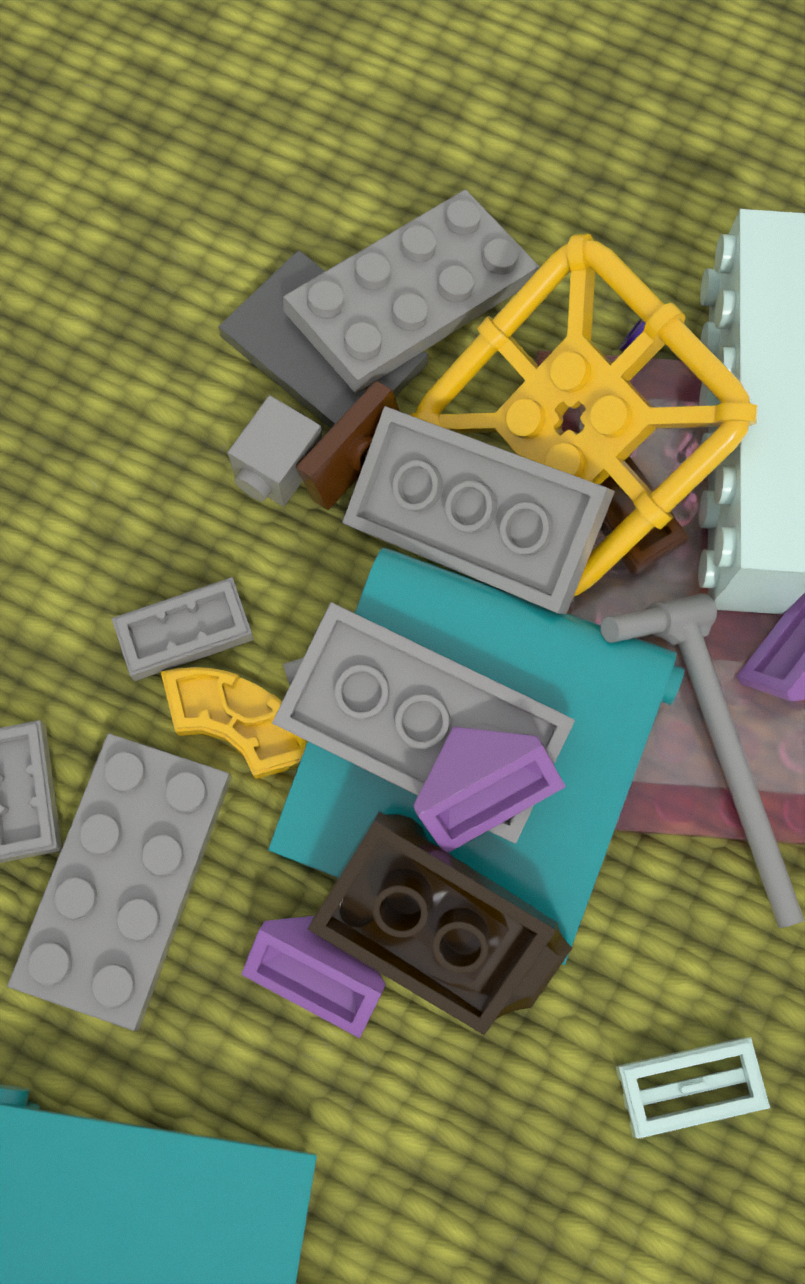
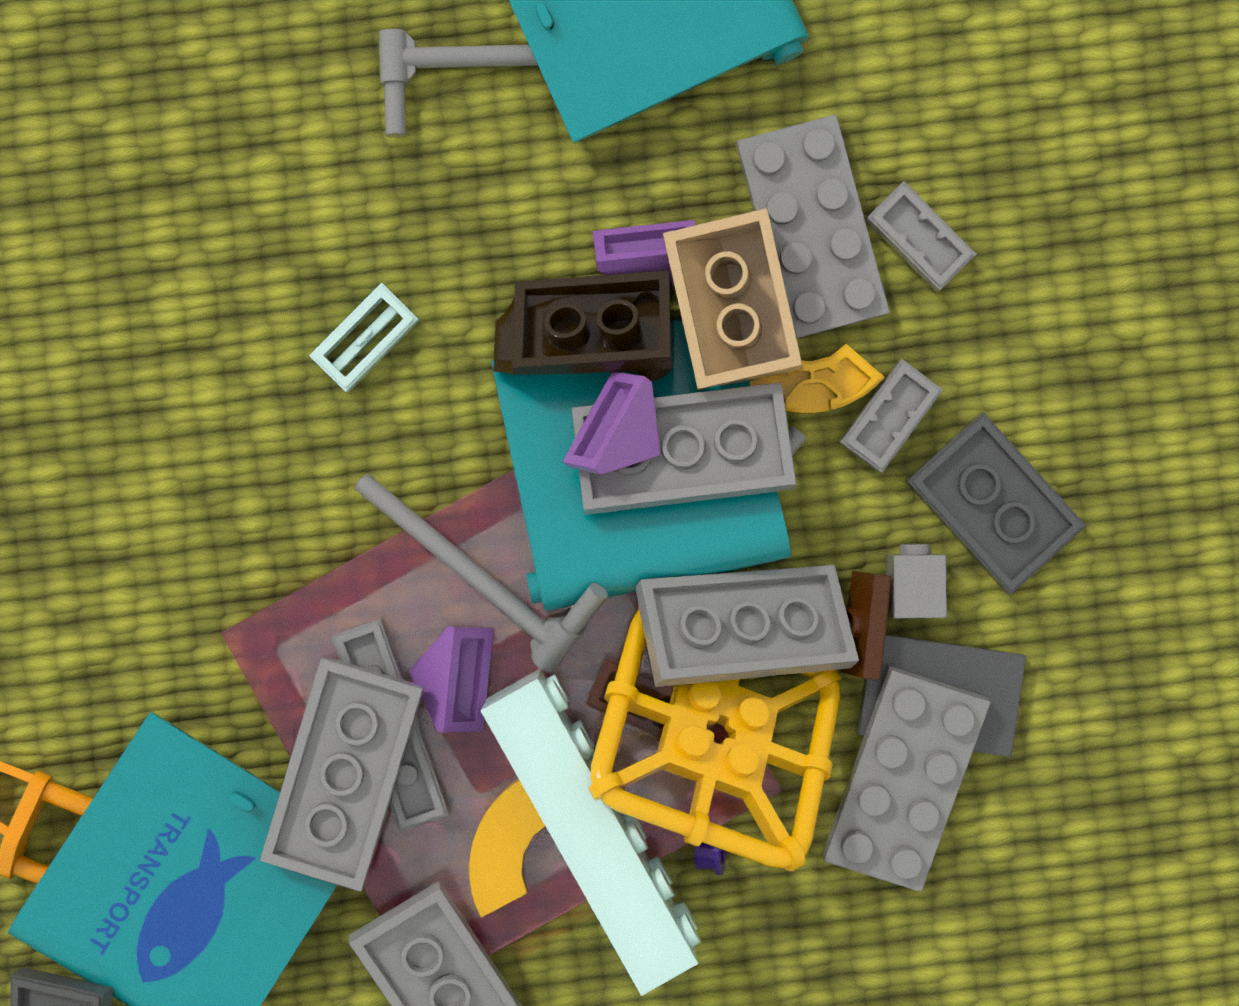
camera: 150 degrees right, 15 degrees up
(142, 485) = (995, 503): none -> dark grey tile
(261, 844) = (733, 300): none -> tan slope

